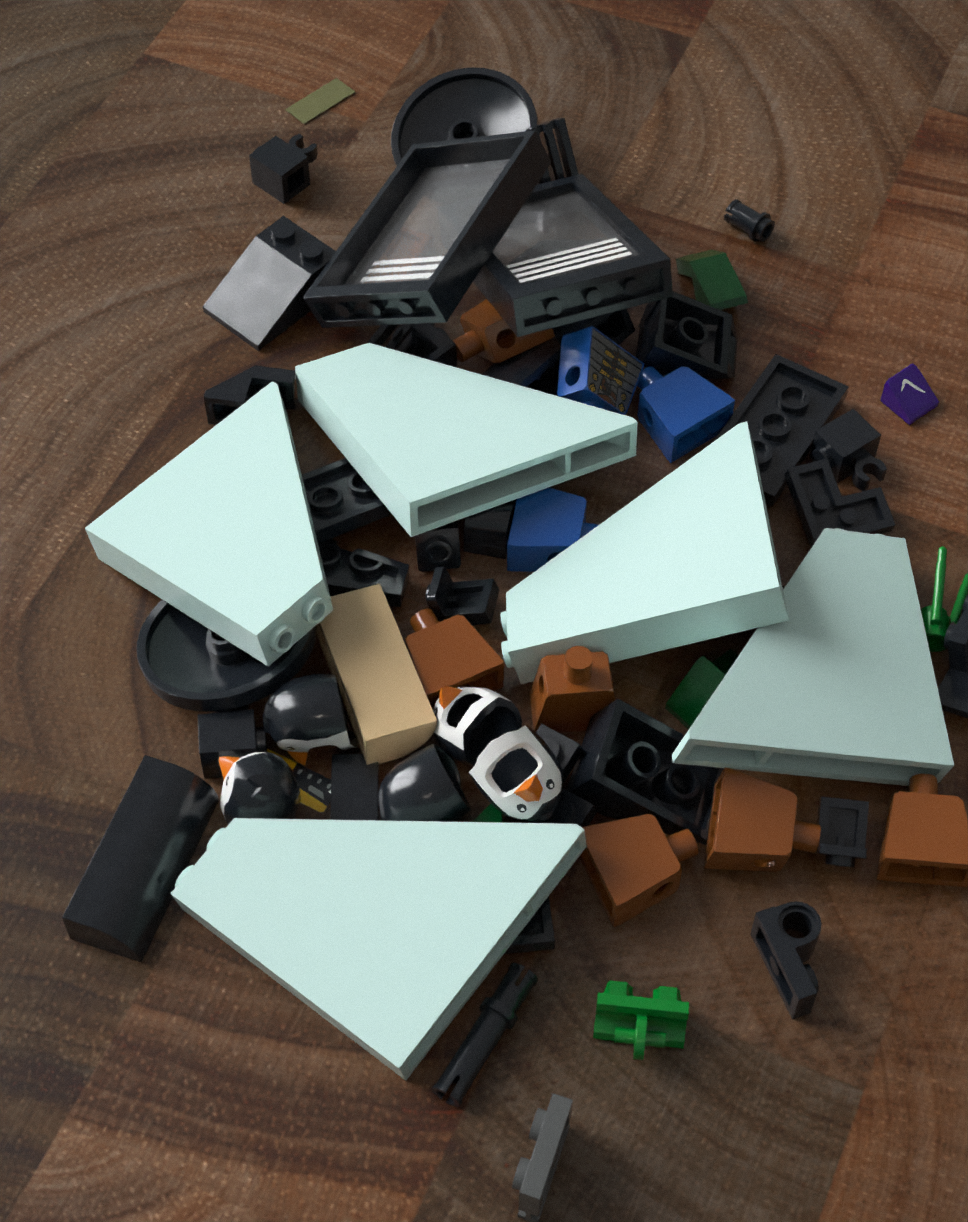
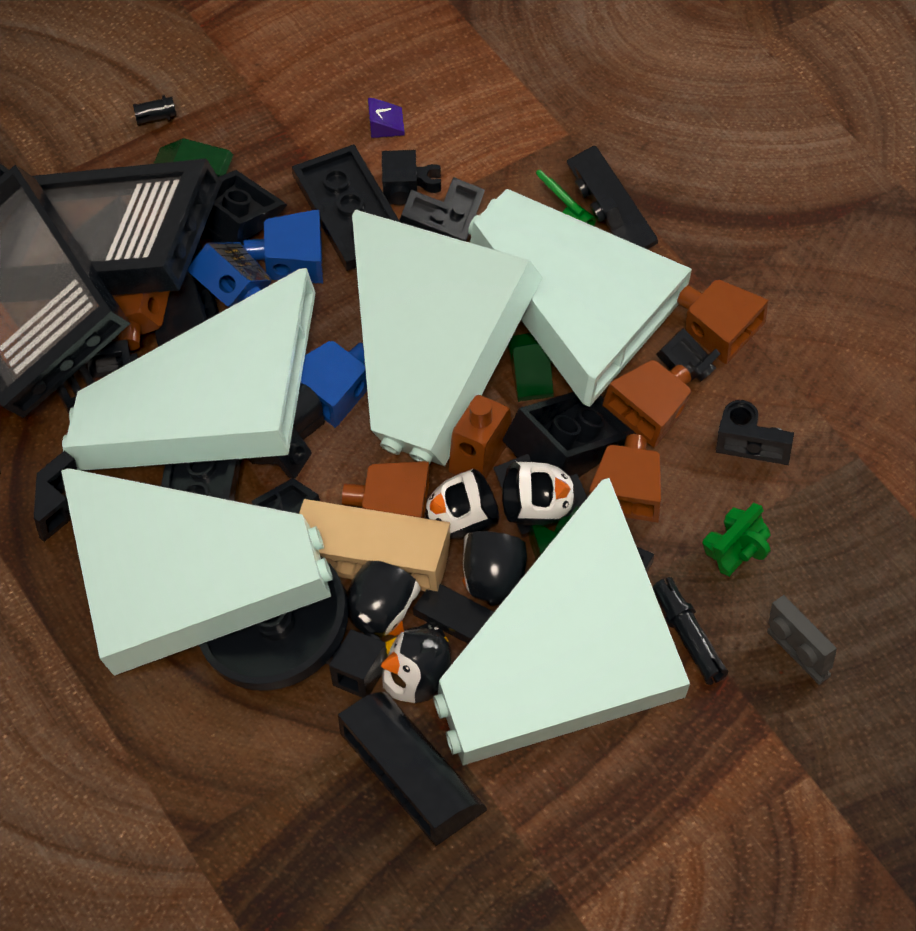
camera: 55 degrees left, 0 degrees up
(469, 599) = (349, 461): black bracket -> none

